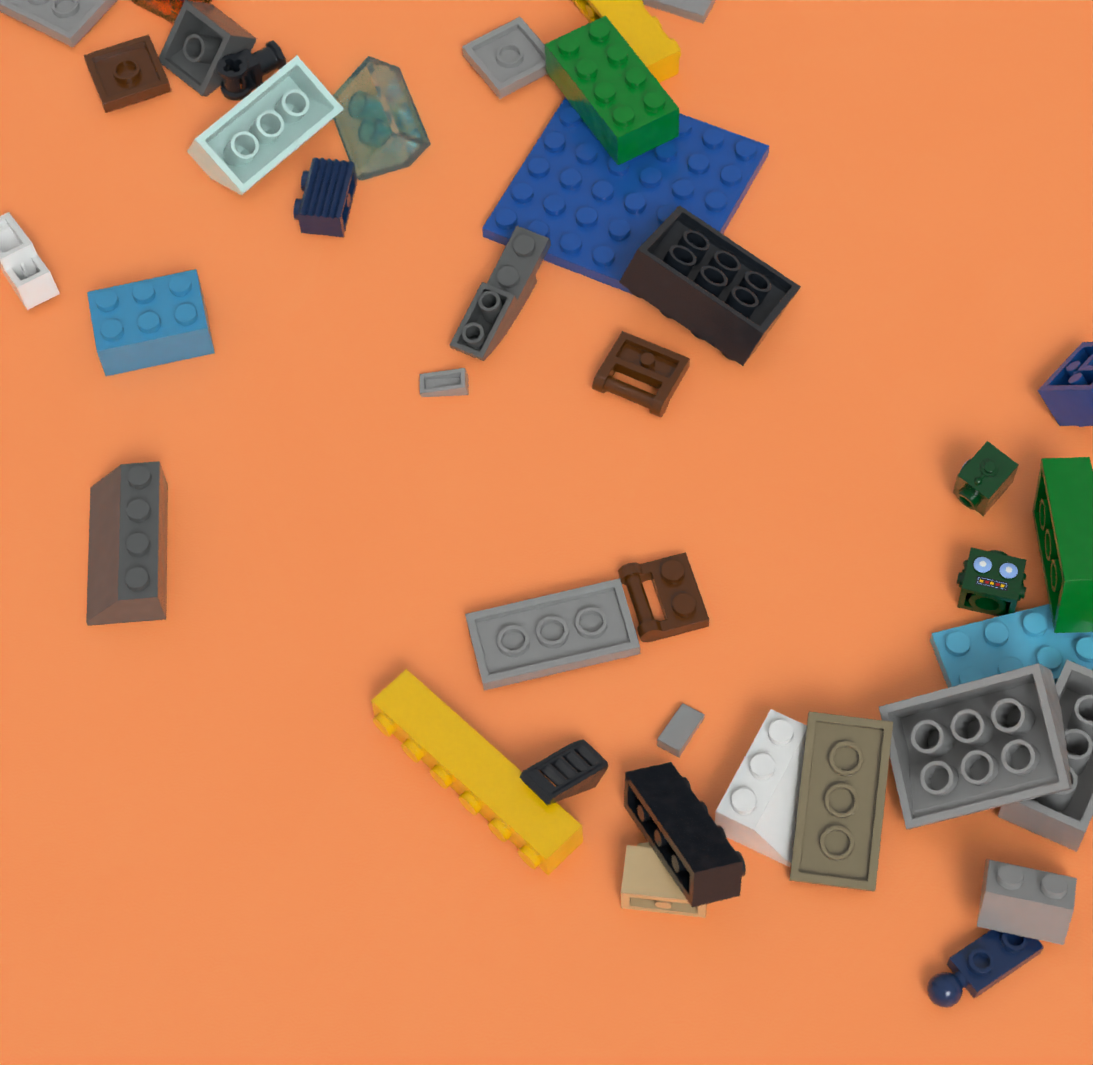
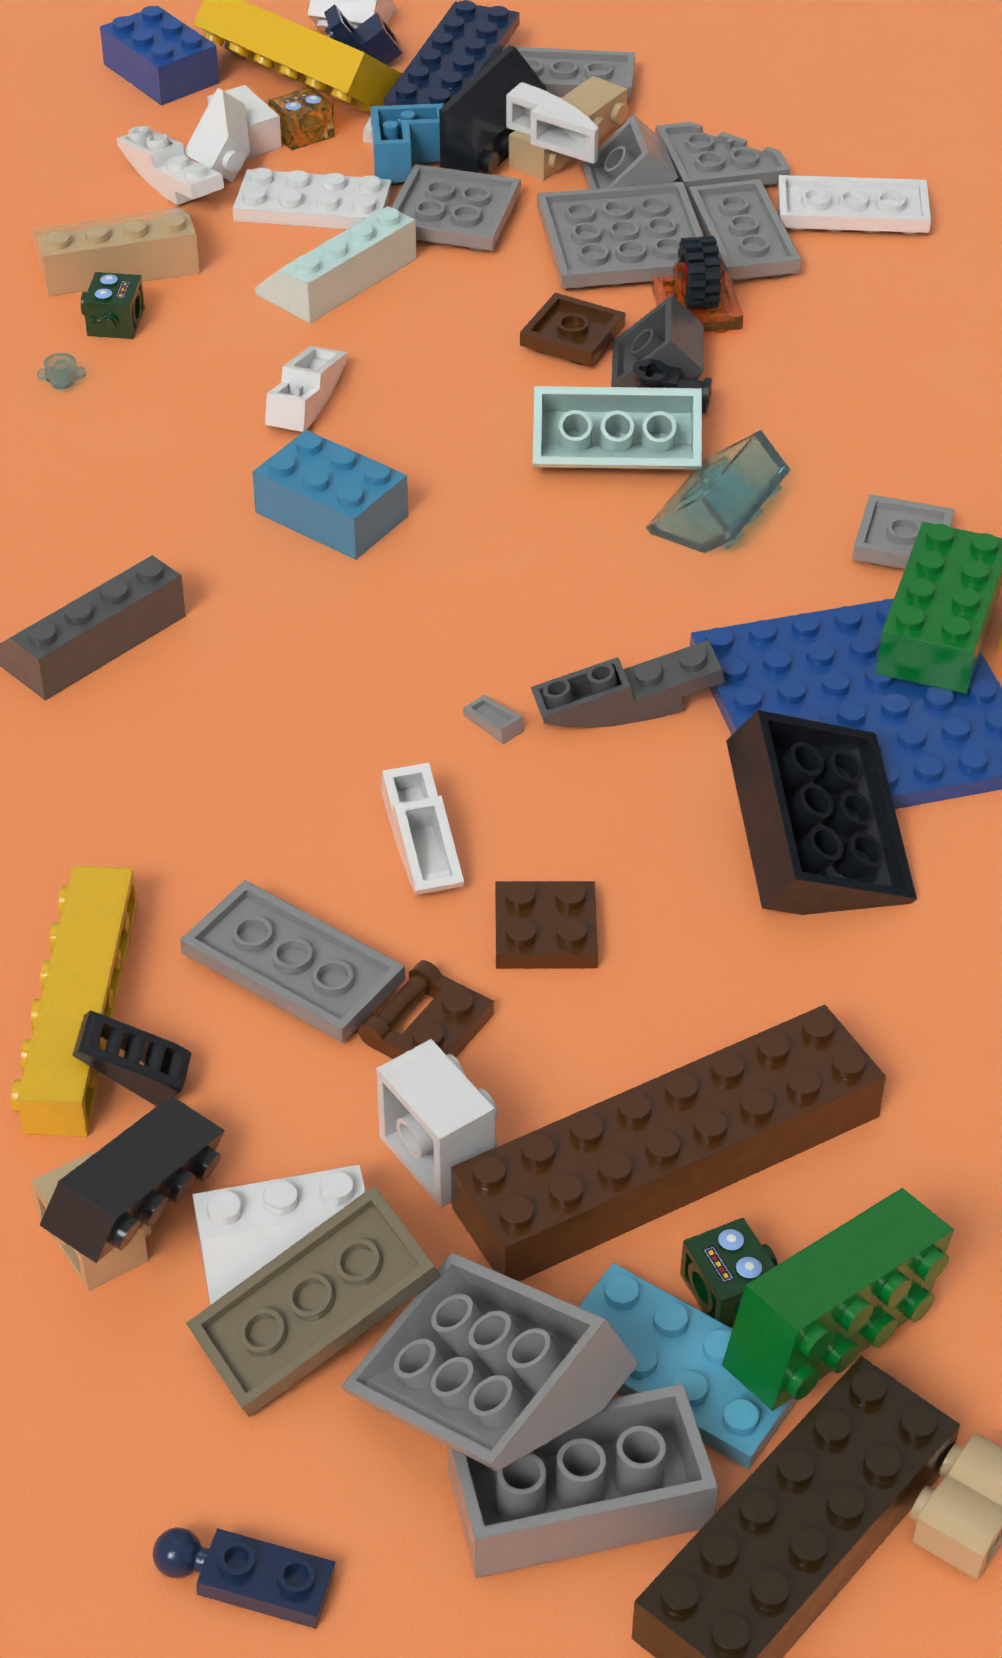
camera: 45 degrees right, 15 degrees down
(326, 197) = (595, 516): dark blue brick -> none
(511, 491) = (421, 828): none -> white slope
(645, 482) = (545, 925): none -> reddish brown plate
(646, 364) = (678, 834): reddish brown plate -> none
(680, 730) = (287, 1130): light grey piece -> none
(769, 647) = (433, 1116): none -> white brick
(876, 547) = (665, 1143): none -> reddish brown brick
(984, 478) = (843, 1177): dark green head -> none
(1026, 901) = (351, 1547): light grey slope -> none

